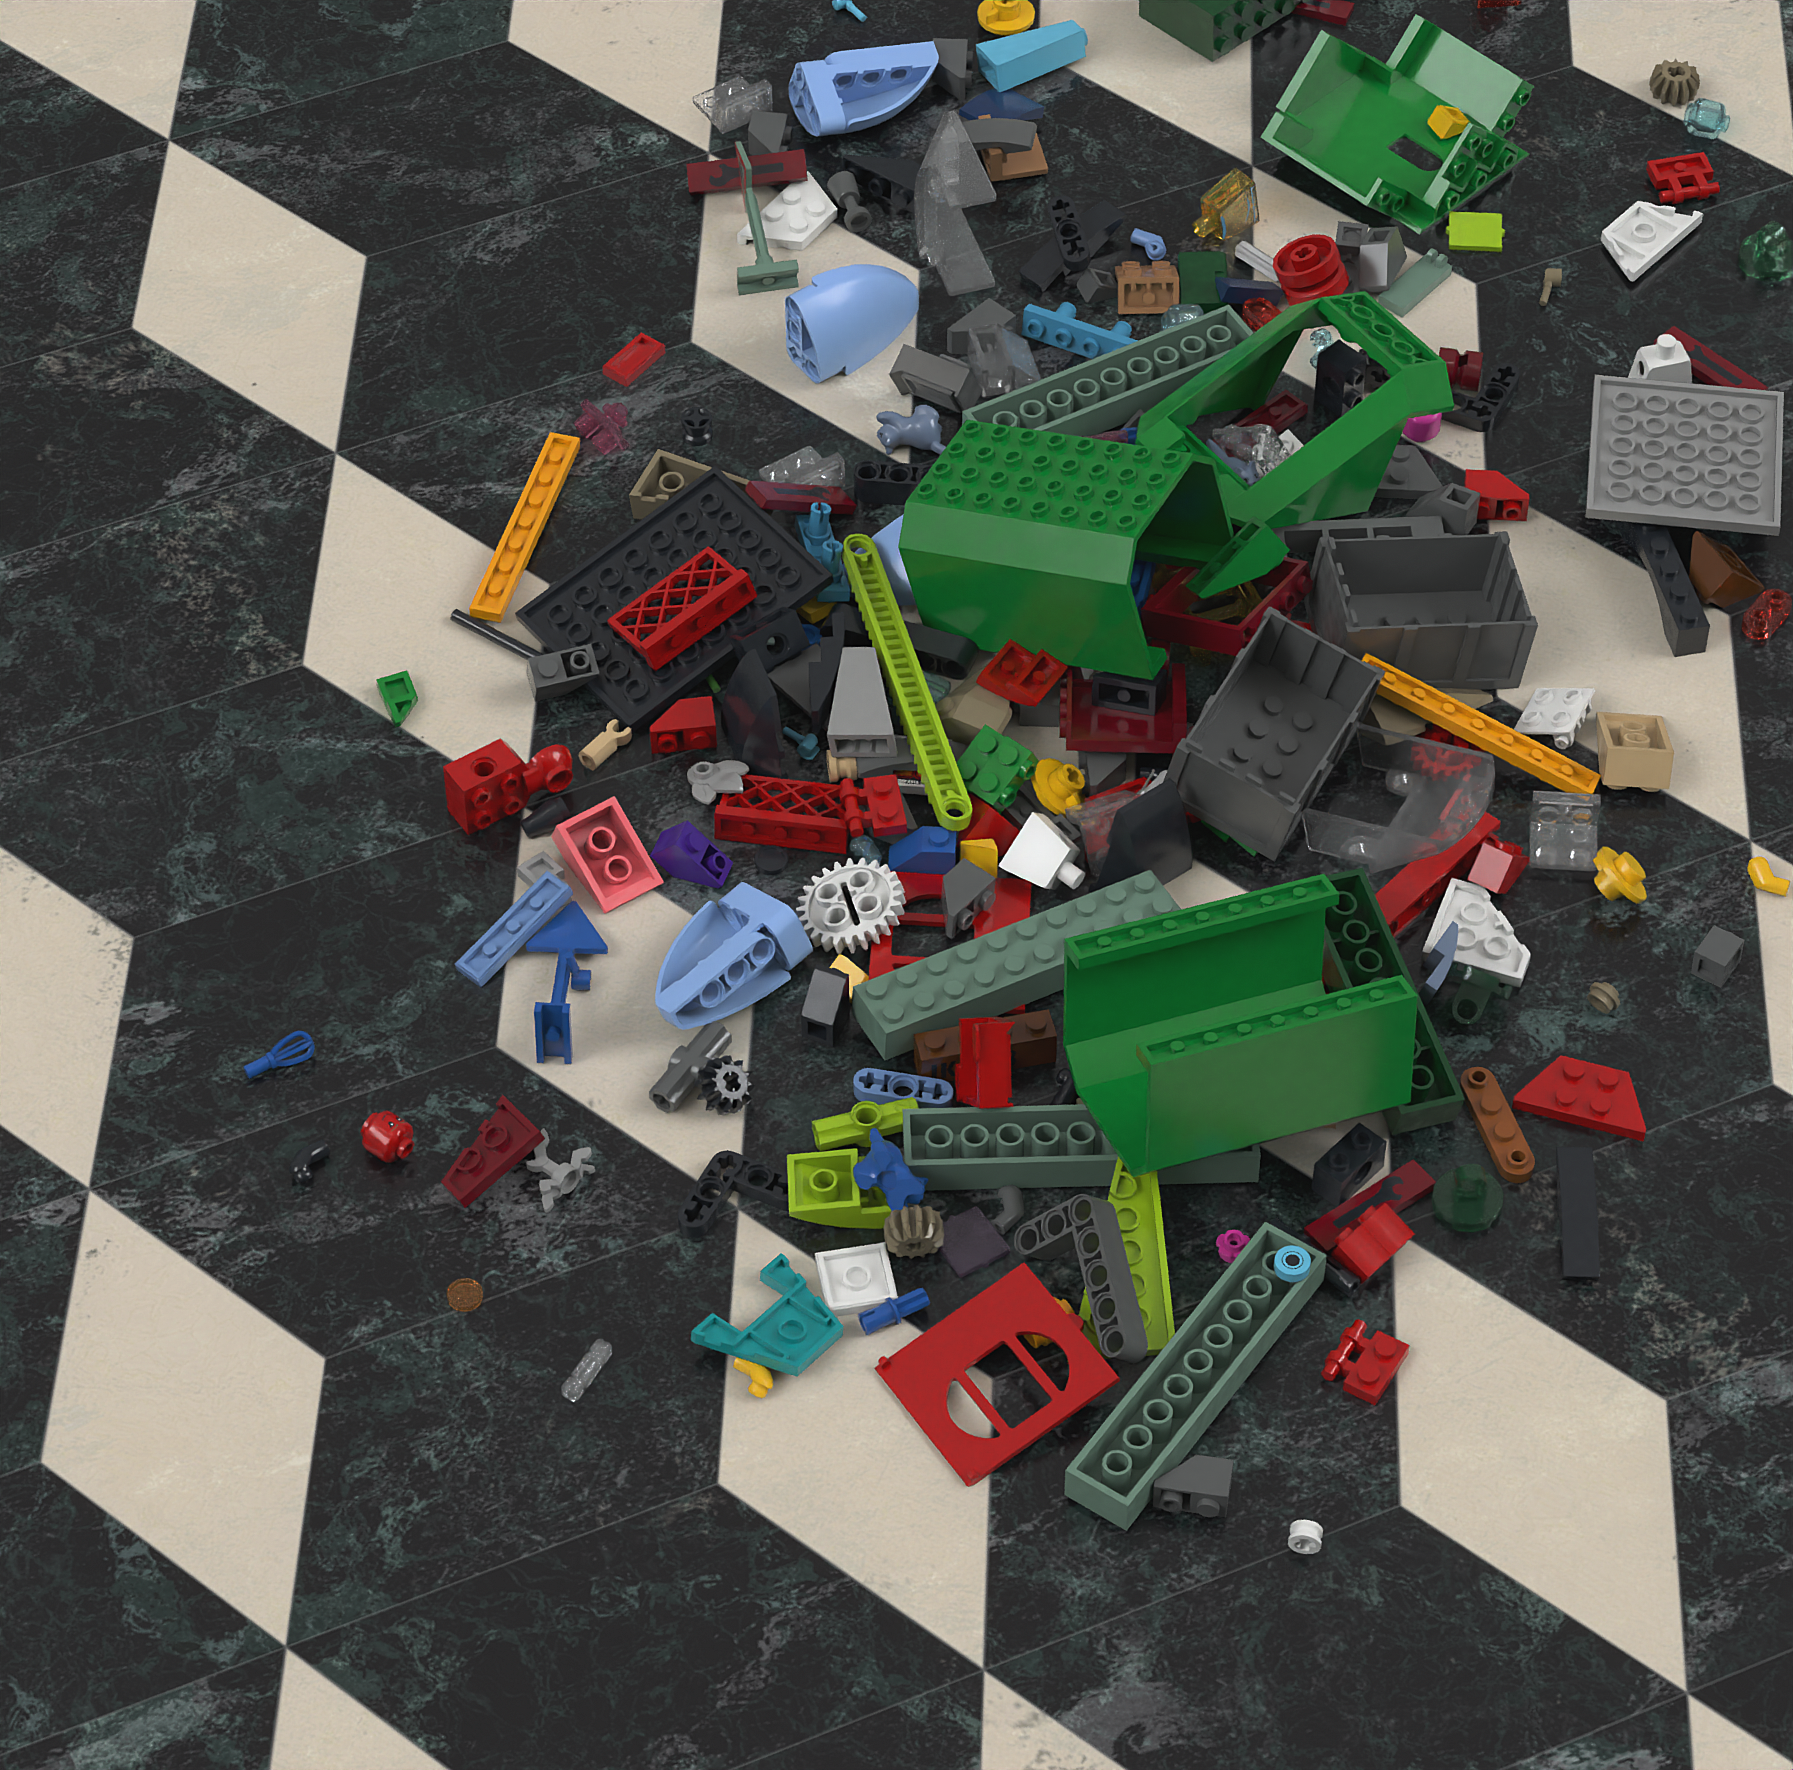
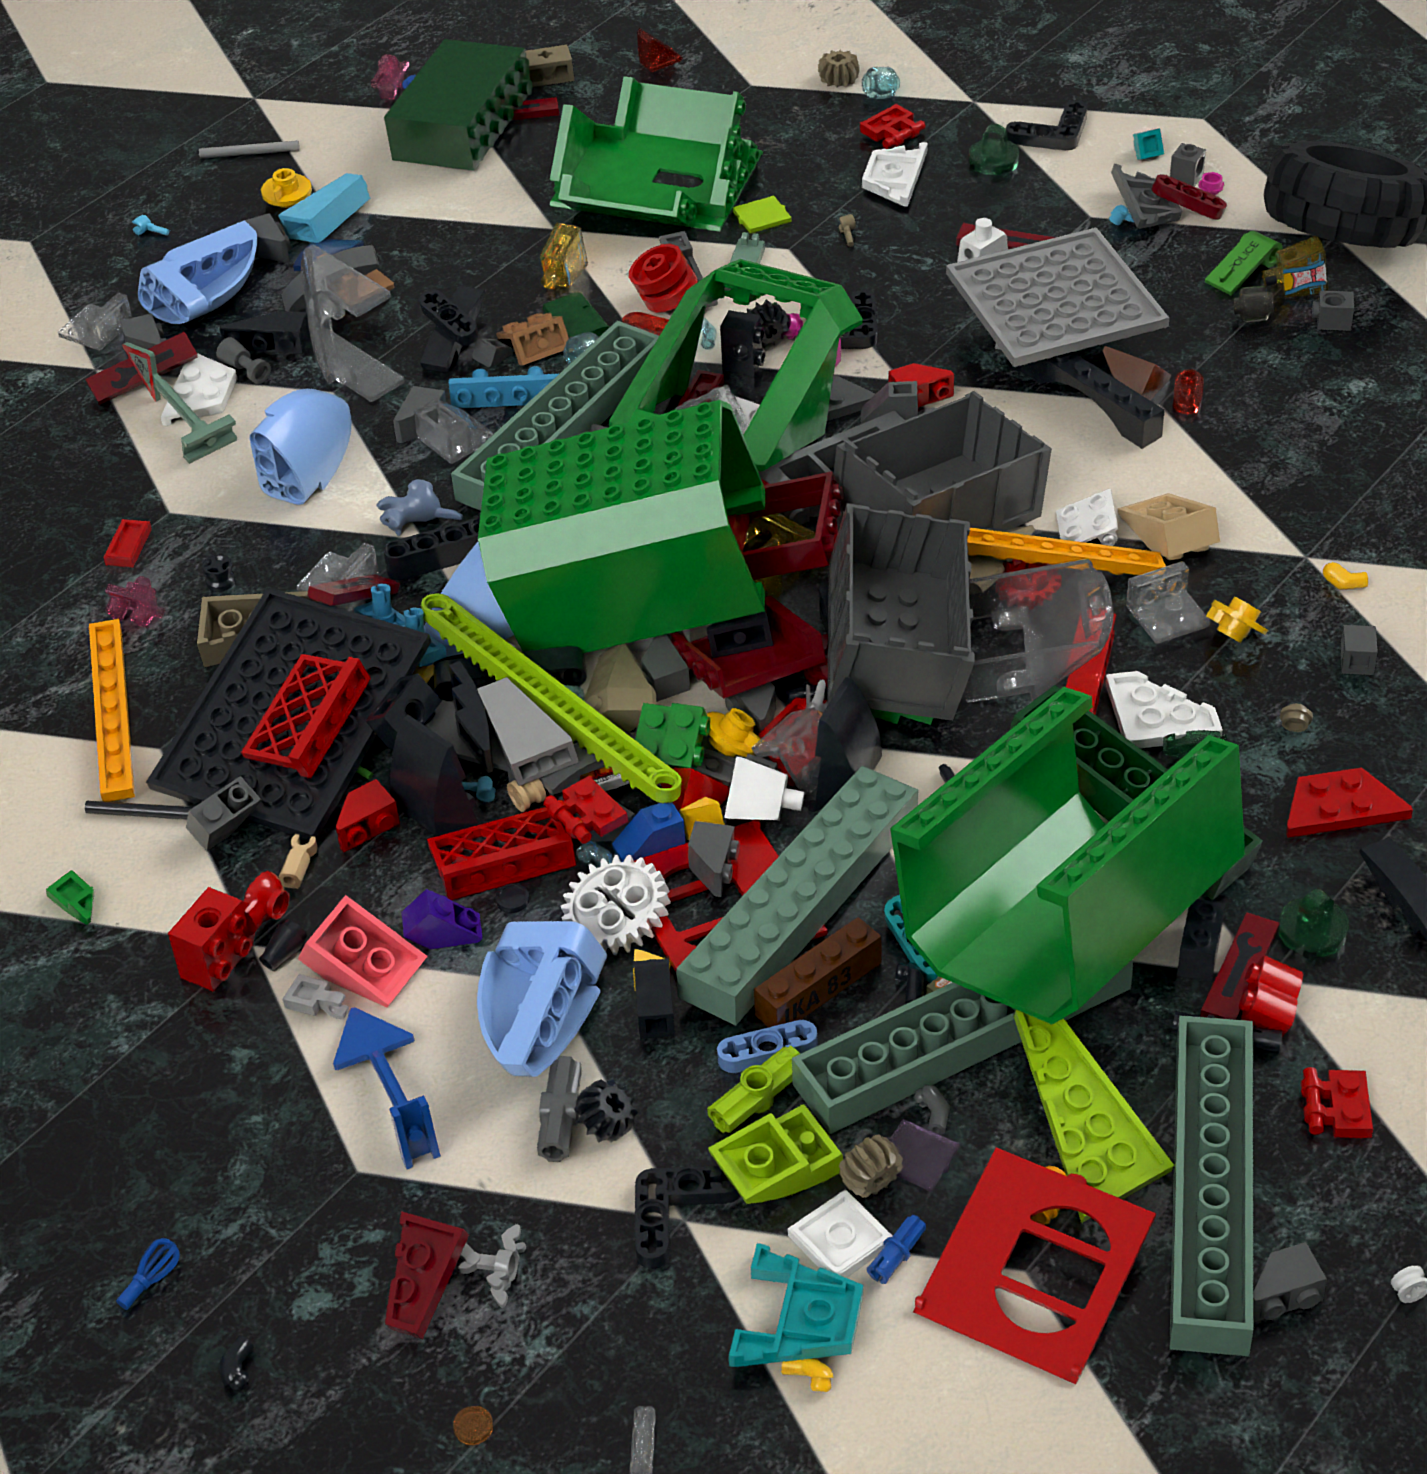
camera: 25 degrees left, 5 degrees down
(387, 1136) = (306, 1303): red head -> none
(514, 929) = (313, 1055): medium blue tile -> none
(579, 978) = (404, 1073): blue hand -> none
(710, 778) = (418, 849): light grey plate -> none
(889, 1172) = (815, 1119): blue animal -> none
(935, 379) = (411, 458): dark grey piece -> none
(985, 1062) = (840, 984): red piece -> none
(1021, 675) = (642, 655): red slope -> none
(1095, 1232) = (1065, 1120): dark grey beam -> none
(1153, 243) = (517, 307): medium blue arm -> none
(1228, 1251) = (1151, 1053): dark pink plate -> none
(1240, 290) = (611, 313): dark blue slope -> none
(1243, 558) = (780, 486): green slope -> none
(1256, 259) = (610, 289): light grey axle -> none
(1292, 1263) = (1233, 1040): medium azure tile -> none
(1380, 259) = (708, 248): dark grey slope -> none
(1439, 962) = (1159, 734): sand blue slope -> none
(1447, 121) = (689, 148): yellow slope -> none
(1497, 1125) = (1296, 858): dark orange plate -> none
(1498, 866) = (1136, 650): slope -> none

